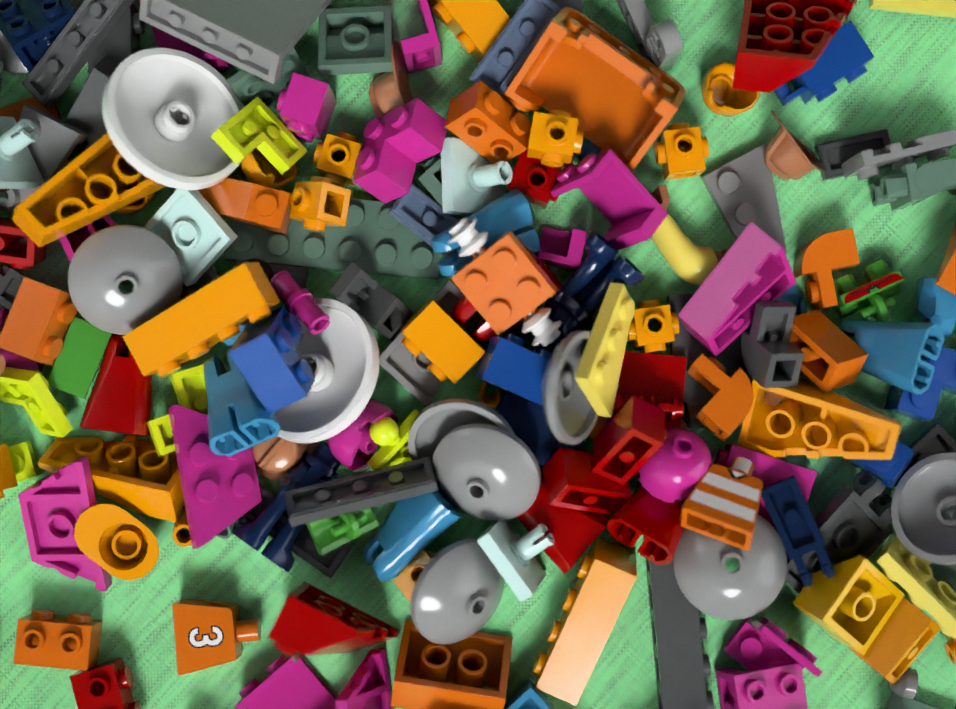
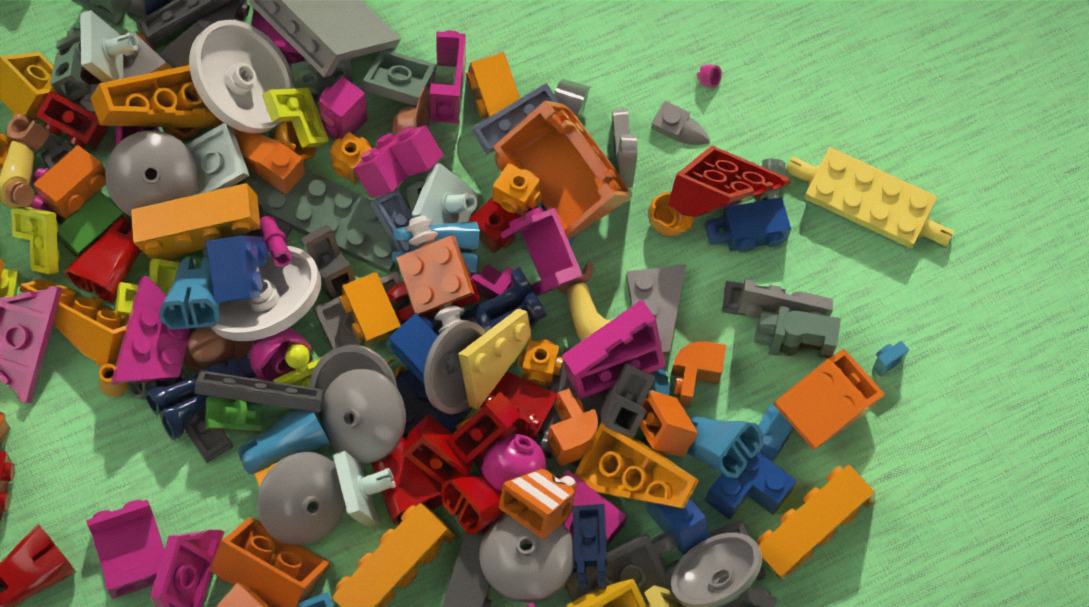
camera: 15 degrees right, 20 degrees down
(116, 541) = (53, 361): light orange piece -> none
(210, 633) = (91, 464): orange torso -> none
(319, 204) = (321, 176): light orange brick -> none
(323, 624) = (187, 482): red wedge -> none
(488, 123) = (472, 165): orange brick -> none
(678, 163) = (615, 245): light orange brick -> none
(789, 155) = (697, 276): nougat piece -> none
(872, 298) = (723, 403): bright green hips -> none

